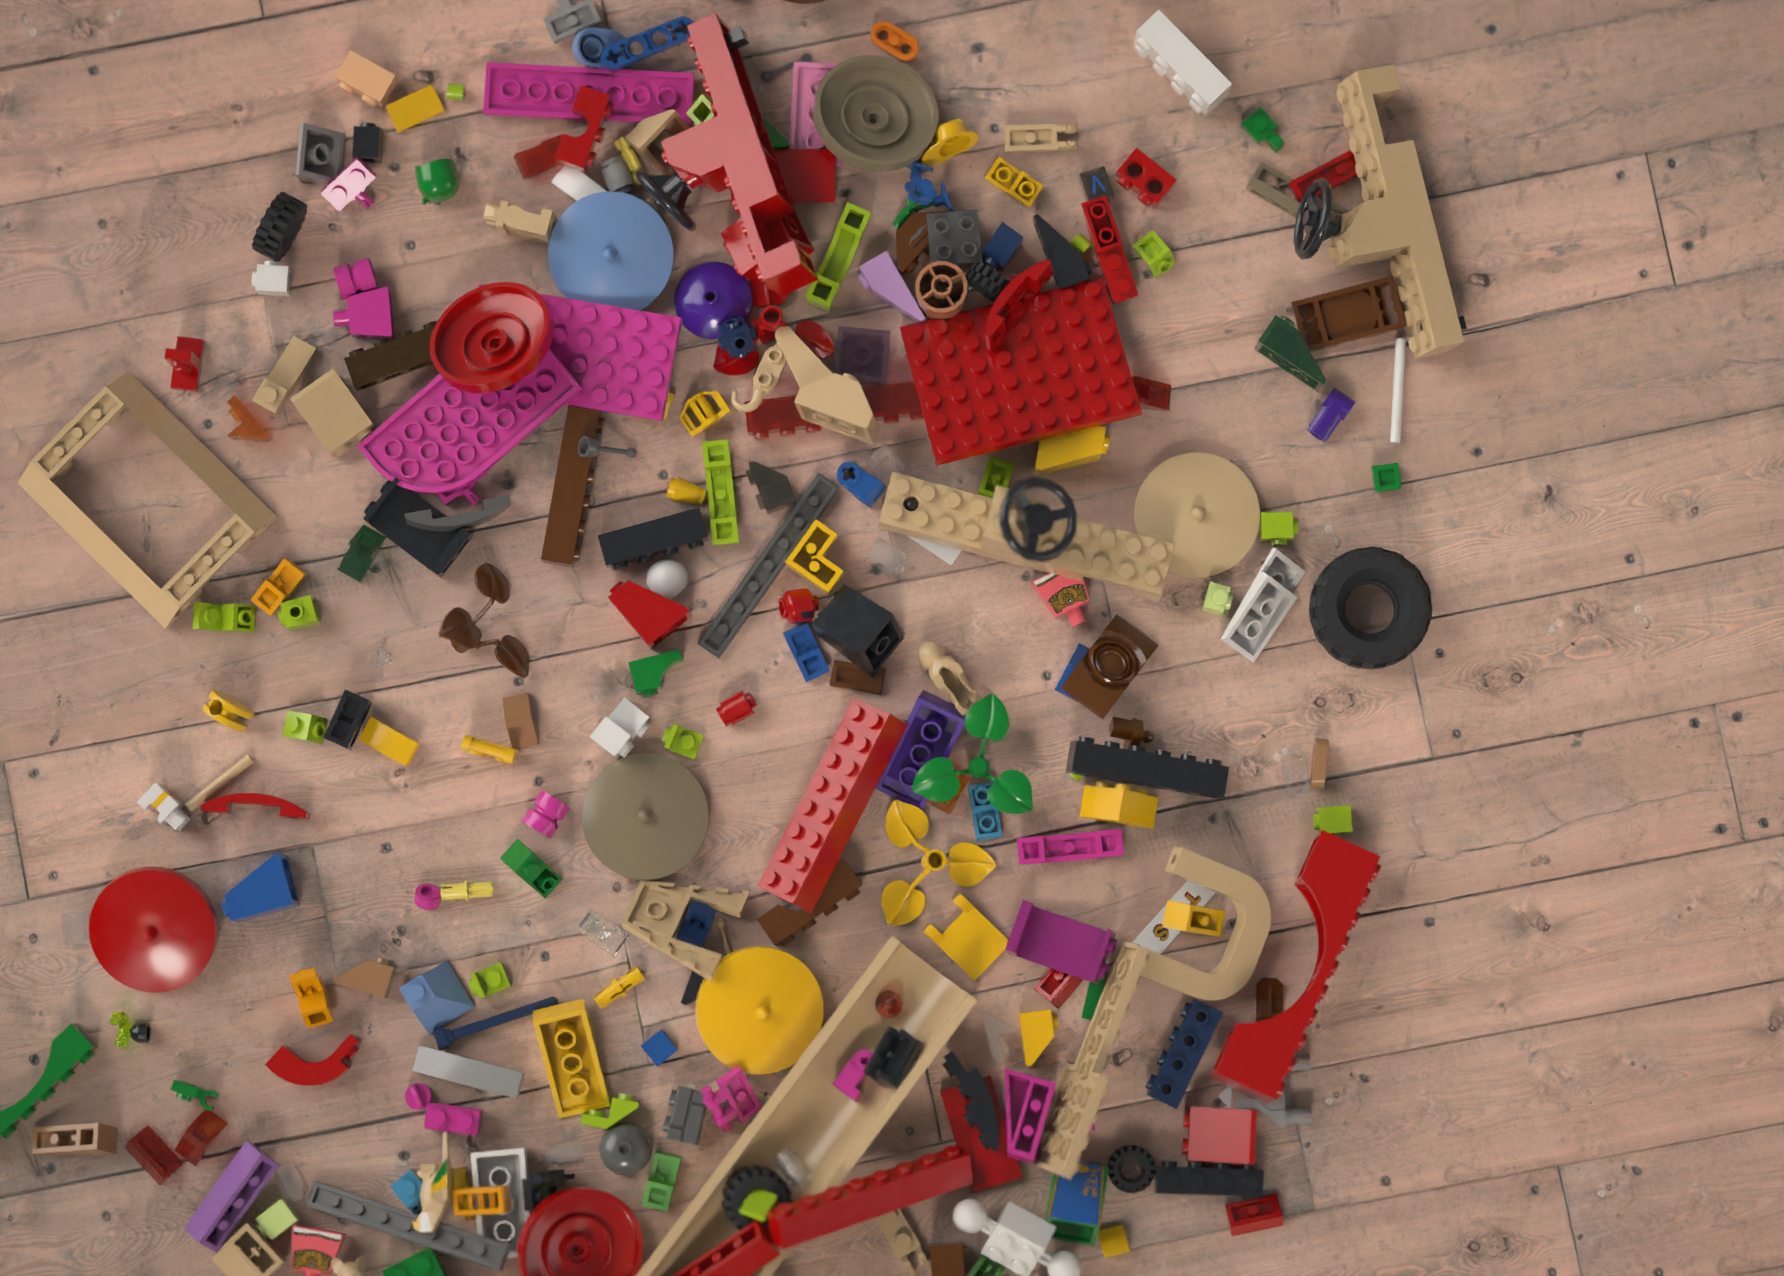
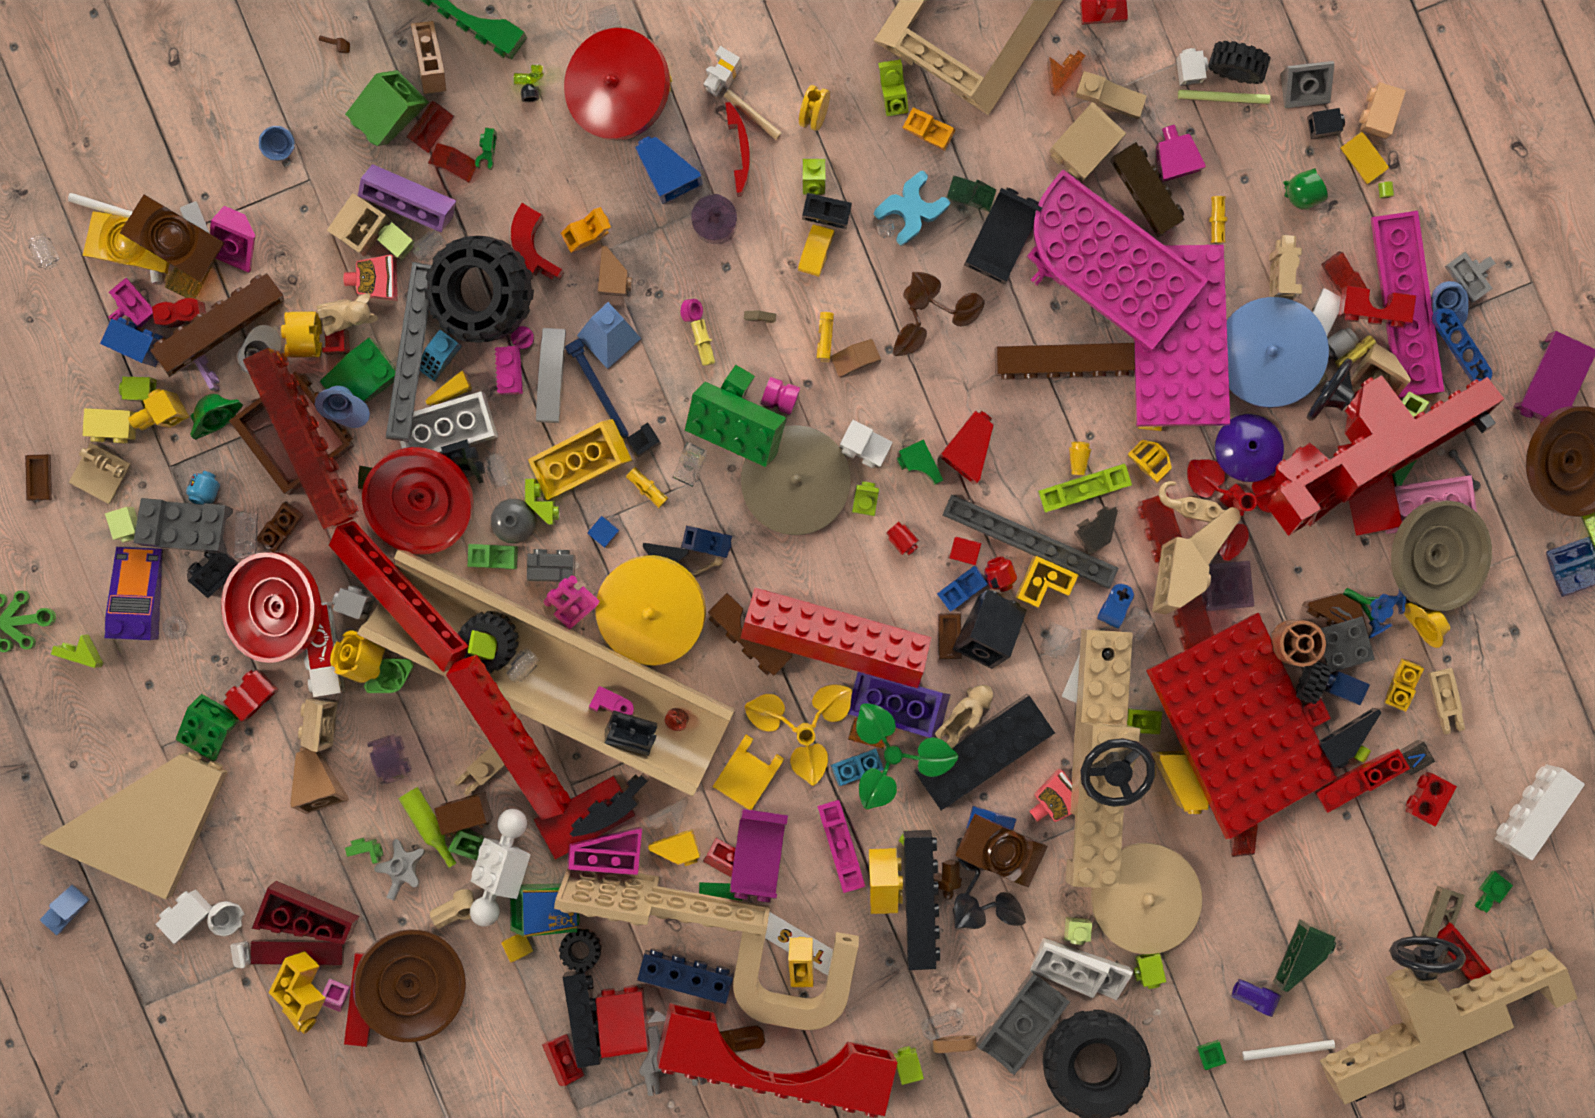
camera: 85 degrees right, 5 degrees up
(39, 1237) = (342, 45): none -> reddish brown hand
(122, 1200) = (386, 107): none -> bright green slope
(298, 613) = (909, 150): lime brick -> none
(312, 250) = (1224, 96): none -> yellowish green piece
(316, 843) = (717, 206): none -> clear purple brick
(345, 1093) = (510, 285): none -> black tyre
(350, 185) = (1286, 116): plate -> none
(355, 278) = (1206, 137): dark pink wheel -> none
(364, 623) = (911, 208): none -> medium azure piece
(424, 520) = (1031, 296): dark grey slope -> none
(435, 1191) = (442, 368): tan animal -> none
(448, 283) = (1218, 219): none -> yellow pin
(449, 820) = (760, 315): none -> dark tan tile
(489, 981) = (630, 377): lime bracket -> none
(491, 337) = (1180, 264): red container -> none
(504, 1200) = (445, 428): light orange slope -> none
(564, 980) = (643, 440): none -> black panel
(567, 870) = (735, 424): none -> green brick
(590, 447) = (1101, 368): dark grey hinge -> none
(653, 538) = (1034, 438): black brick -> none
(658, 912) = (716, 508): tan wing -> none
(667, 578) = (1002, 457): white hair -> none
(736, 337) = (1221, 468): dark blue brick -> none
(764, 641) = (965, 551): none -> red panel
(839, 257) = (1309, 548): lime arch -> none
(888, 285) = (1293, 594): lavender slope -> none
(896, 39) = (1507, 559): orange plate -> none
(995, 659) = (989, 750): none -> black brick
(1031, 278) = (1323, 718): red slope -> none
(1154, 253) = (1366, 819): lime bracket -> none
(1170, 715) = (969, 913): none -> black plant
(1309, 681) = (1023, 1023): none -> dark grey piece
(1349, 314) = (1348, 998): reddish brown slope -> none

